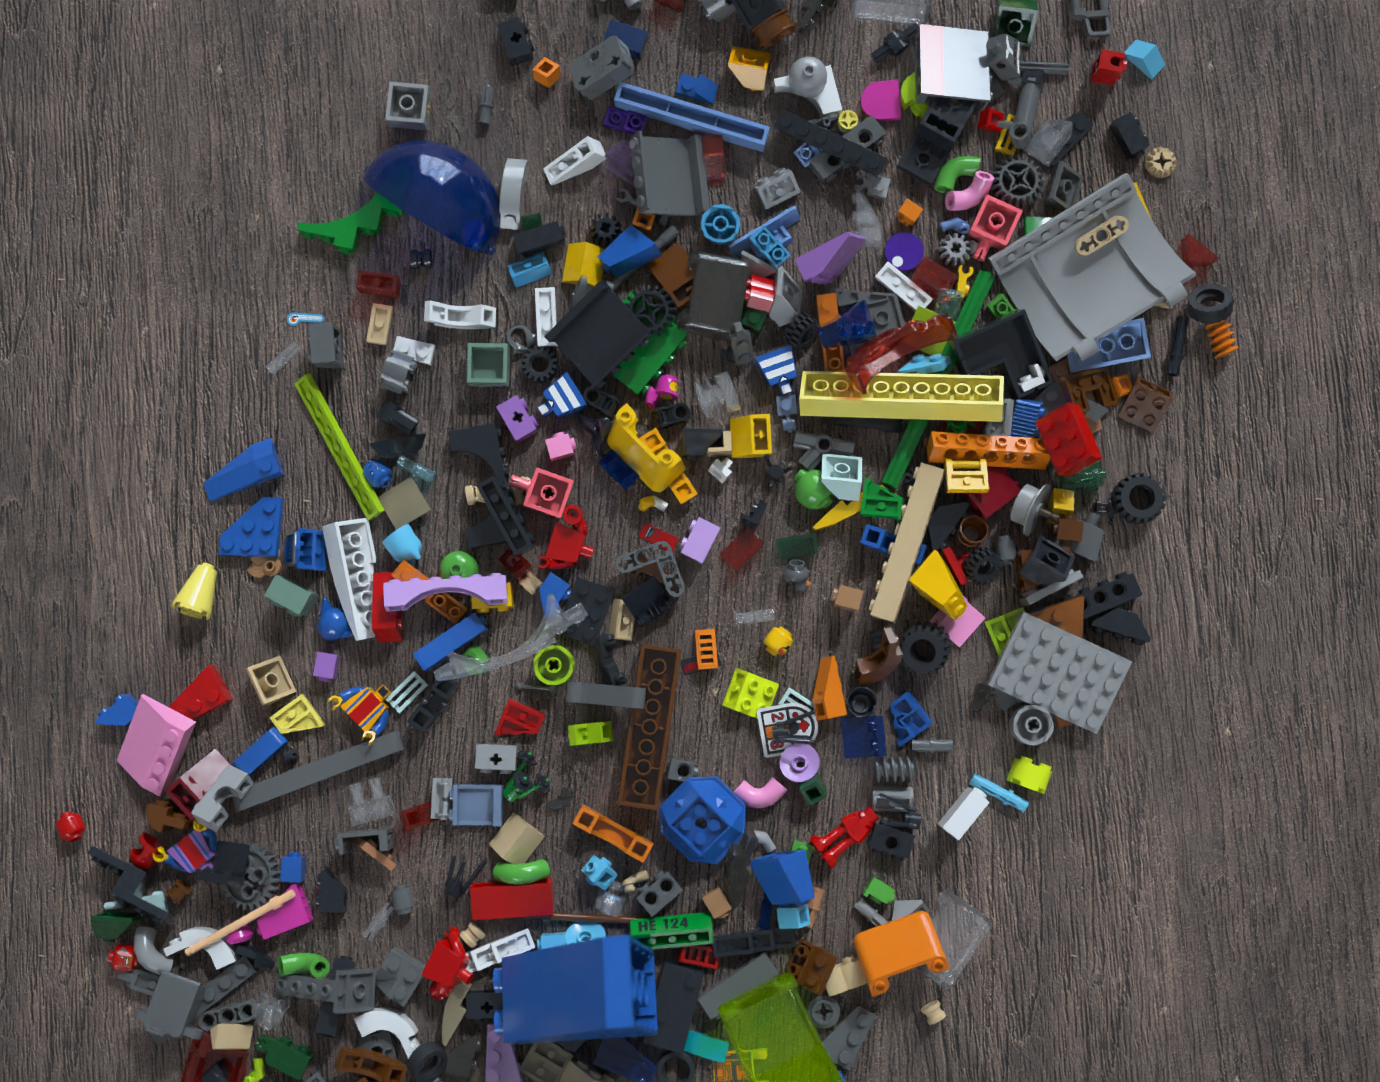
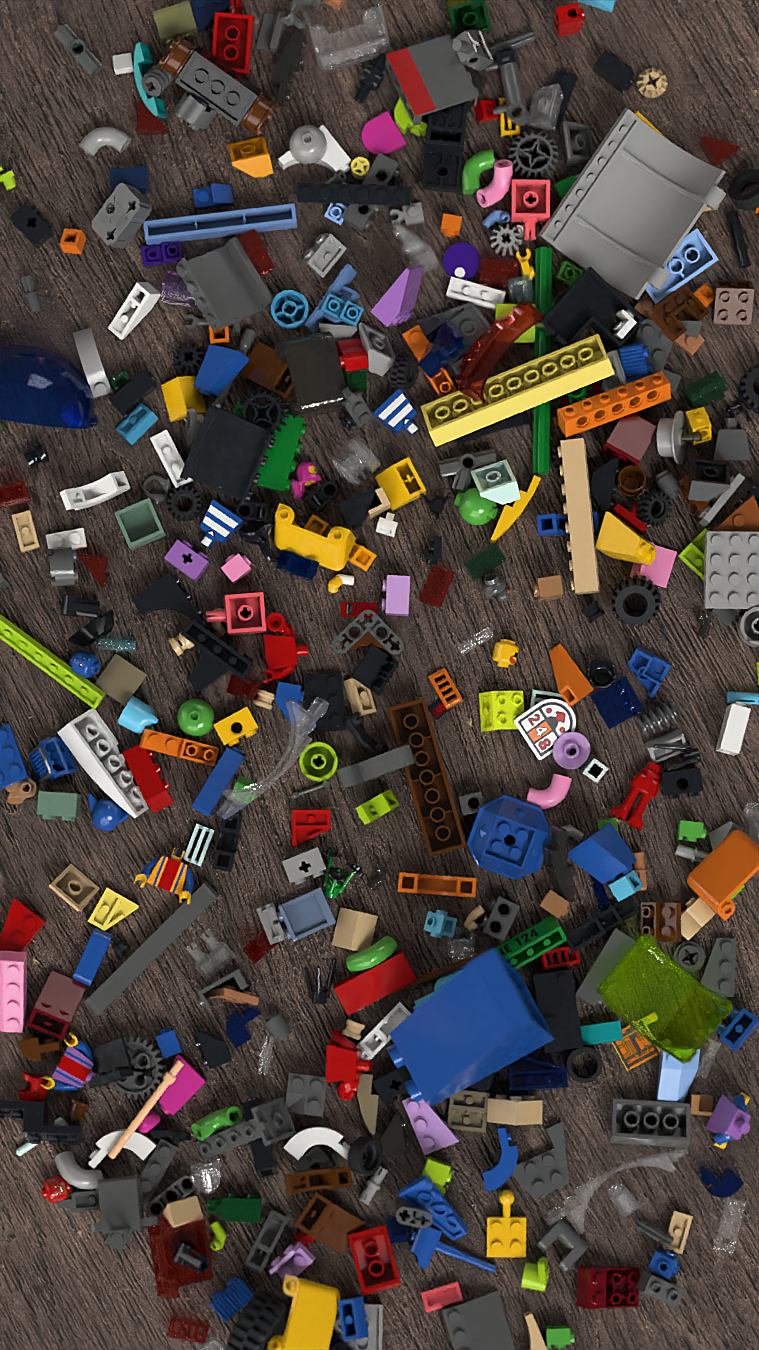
camera: 30 degrees left, 0 degrees up
(113, 924) = (34, 1163): dark green slope -> none
(230, 783) = (81, 992): light grey arch -> none
(326, 666) = (117, 853): medium lavender brick -> none
(363, 883) = (236, 1027): none -> clear blue brick
(403, 595) = (230, 721): lavender arch -> none
(430, 387) = (97, 566): none -> clear red slope
(781, 734) = (545, 733): black plant -> none
(787, 407) = (420, 444): sand blue plate -> none
(880, 502) = (540, 491): green wing -> none
(881, 662) = (604, 630): reddish brown arch -> none
(926, 364) = (525, 353): medium azure wing -> none
(932, 745) = (680, 683): dark grey pin -> none
(966, 480) = (606, 439): yellow plate -> none
(1068, 440) = (679, 364): red brick -> none
(1068, 530) = (714, 443): reddish brown brick -> none
(1116, 232) = (624, 186): tan beam -> none

